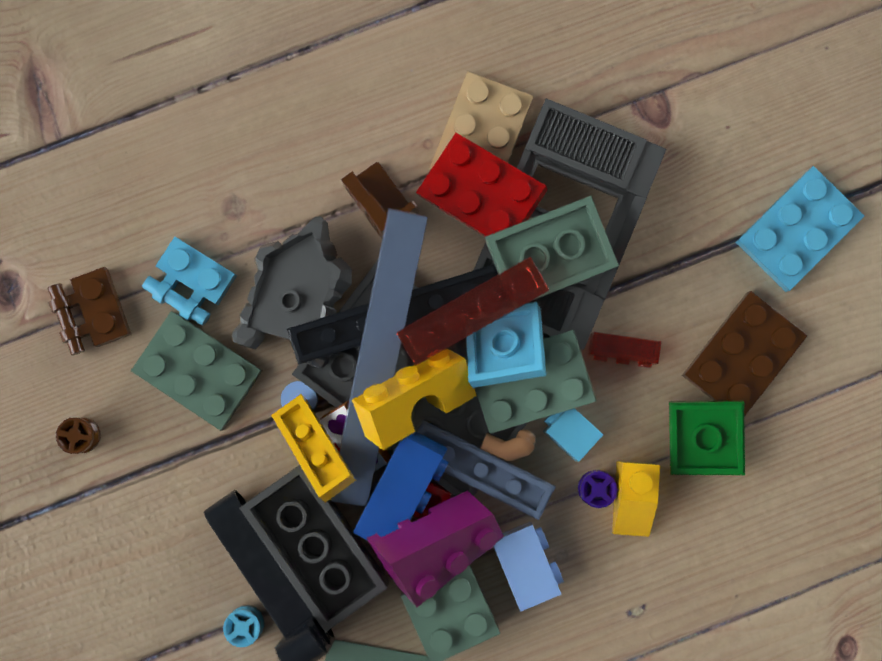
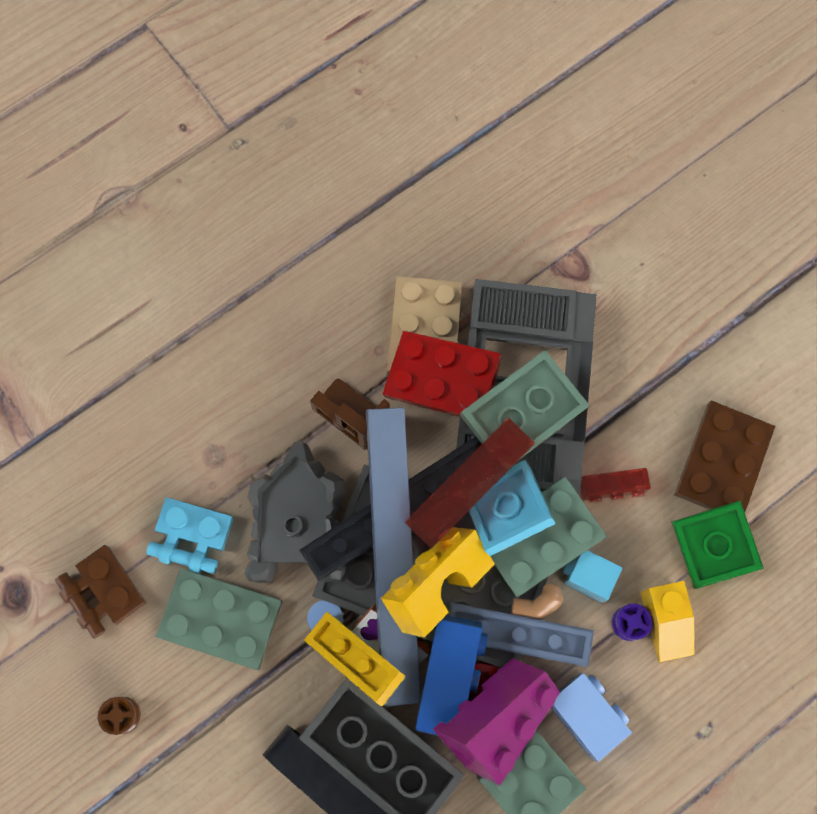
camera: 20 degrees left, 10 degrees down
(799, 229) = (735, 335): medium azure plate -> none

